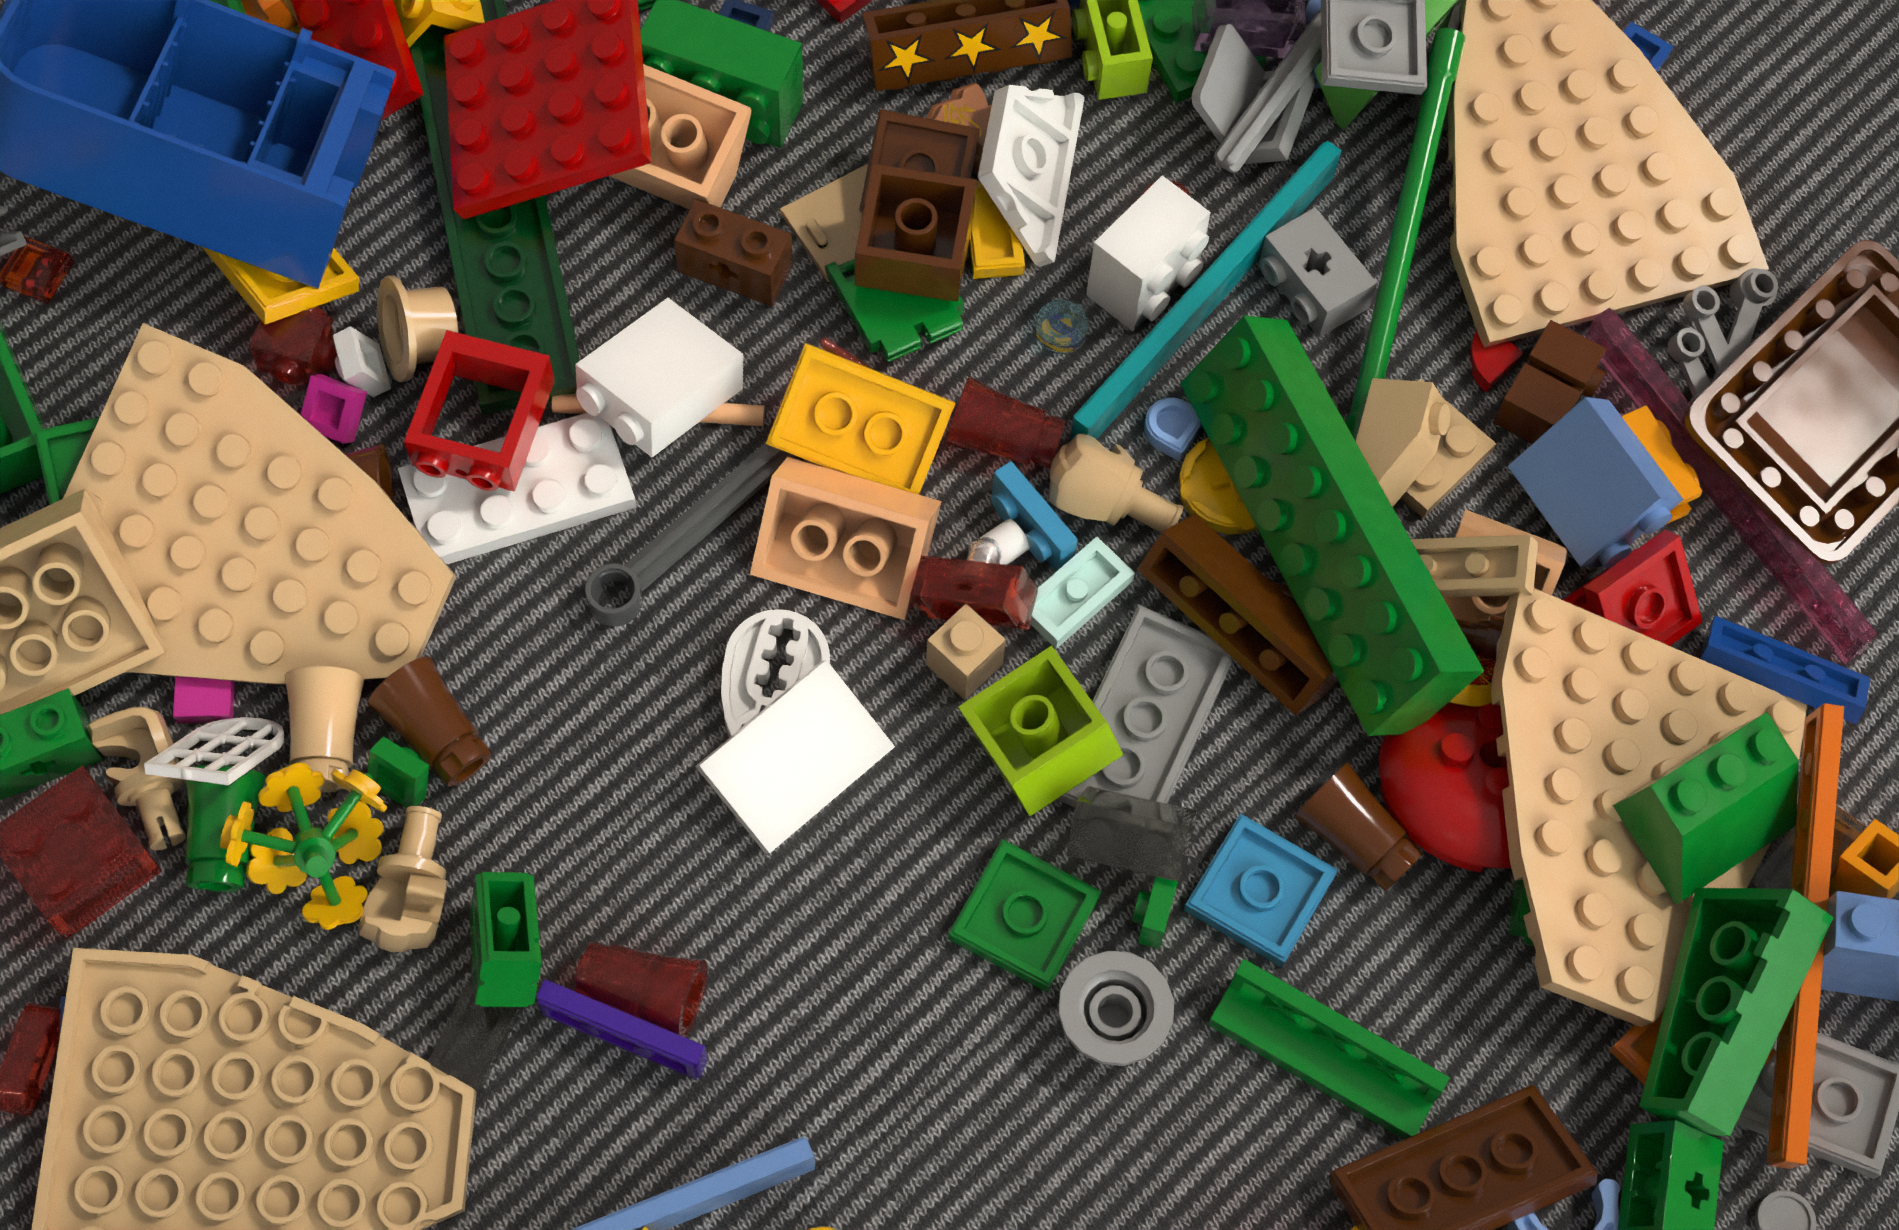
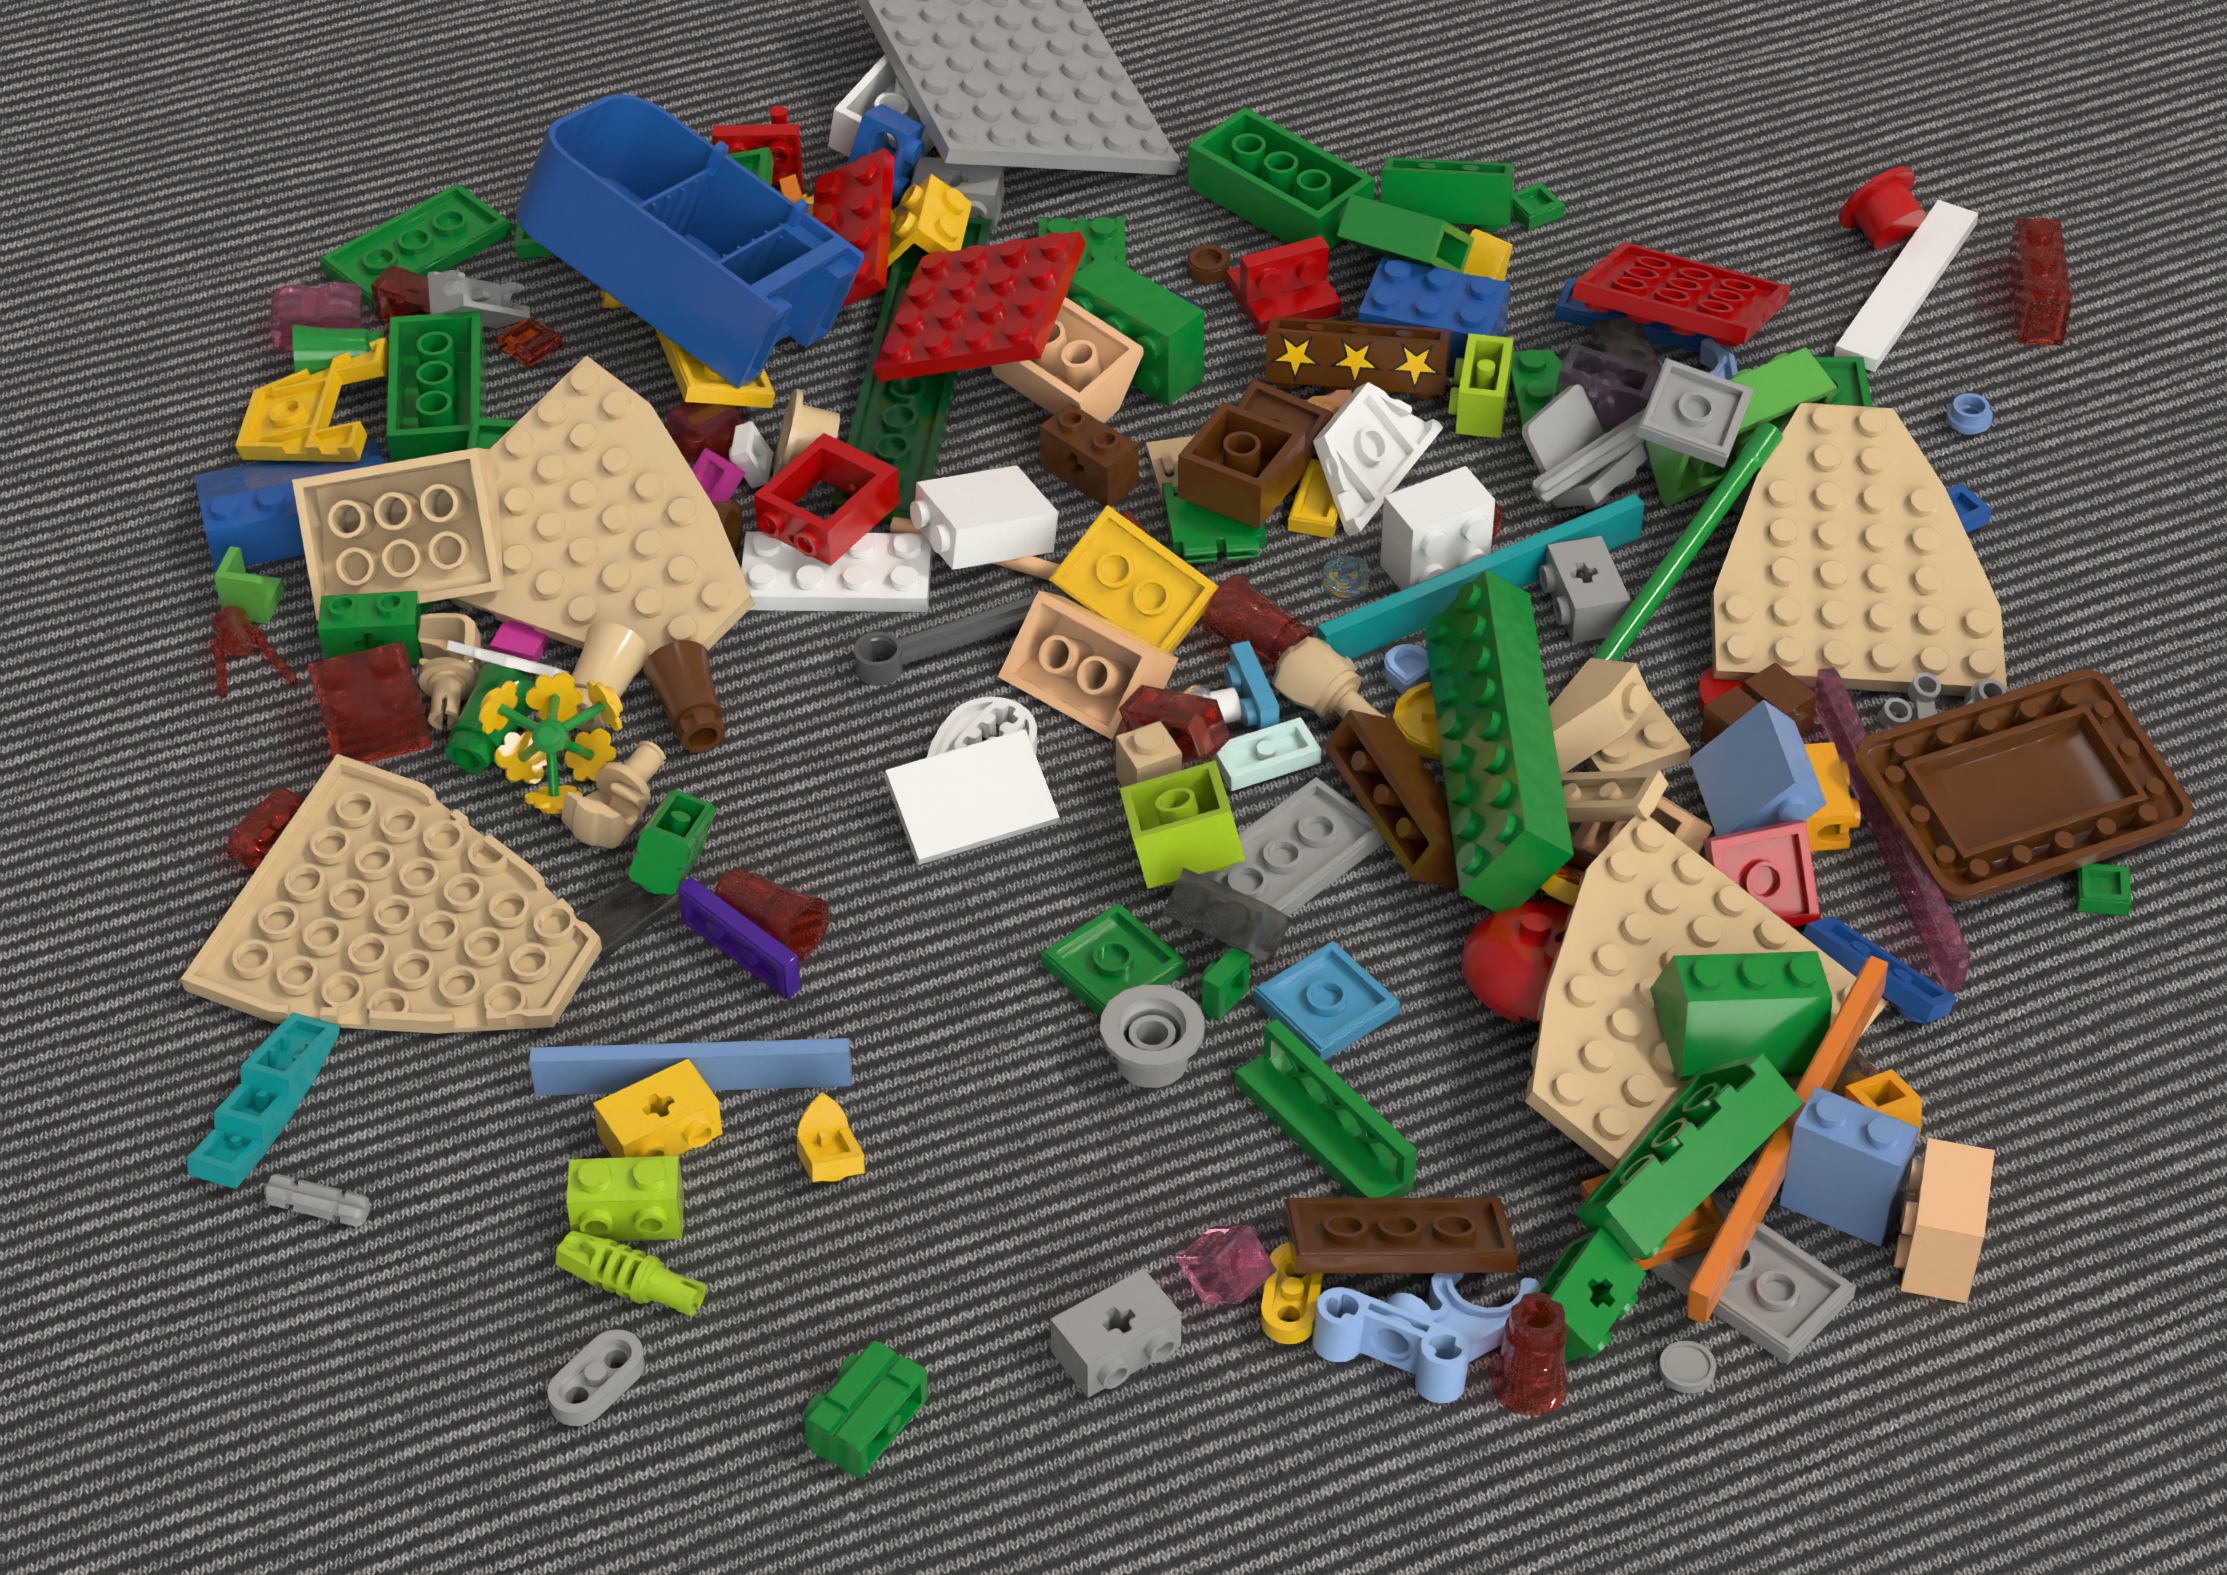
camera: 25 degrees right, 20 degrees down
(398, 772) = (644, 720): green plate -> none
(1359, 828) = (1428, 970): reddish brown plant -> none

